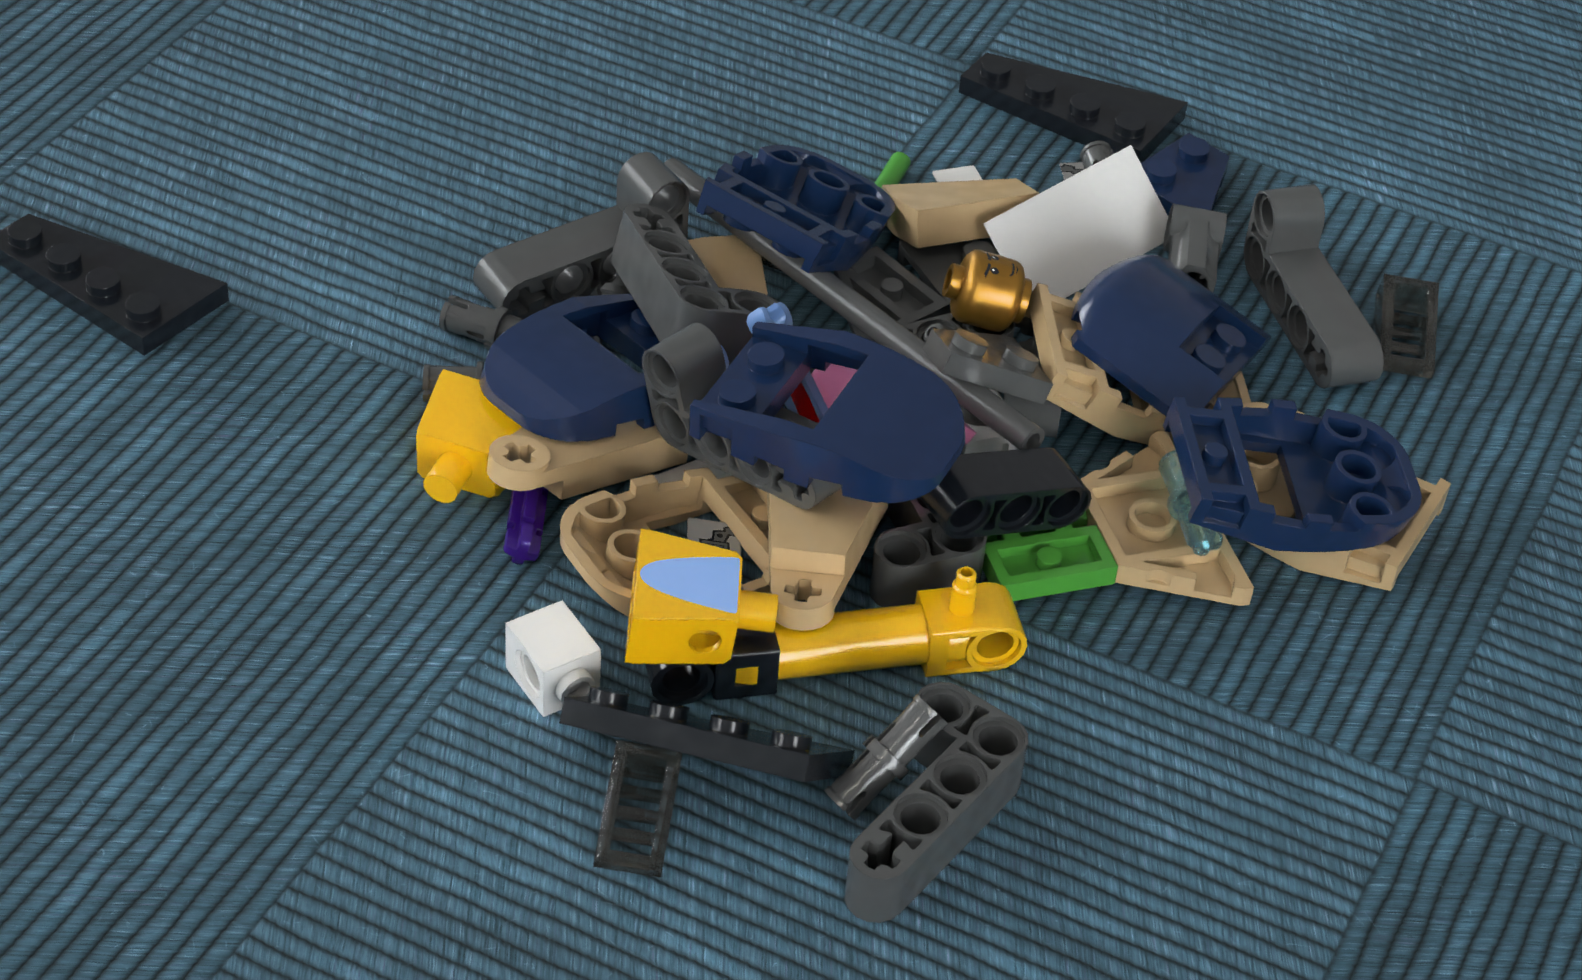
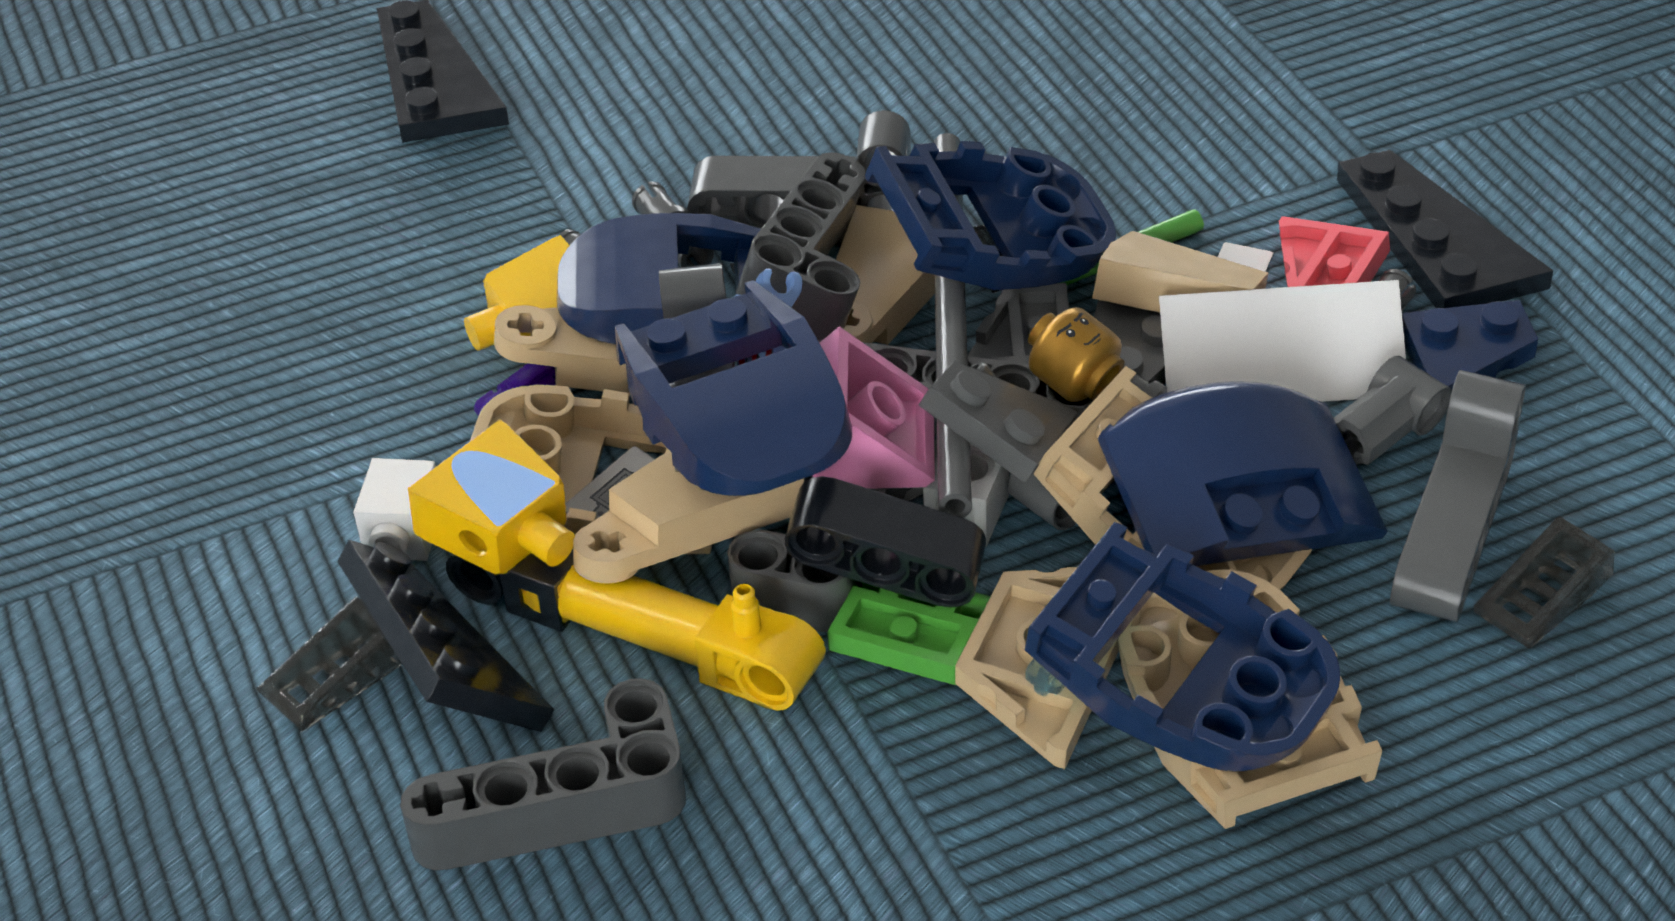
camera: 45 degrees right, 0 degrees up
(885, 757) = (545, 721): dark grey pin -> none
(1032, 151) = (1330, 252): none -> coral wing

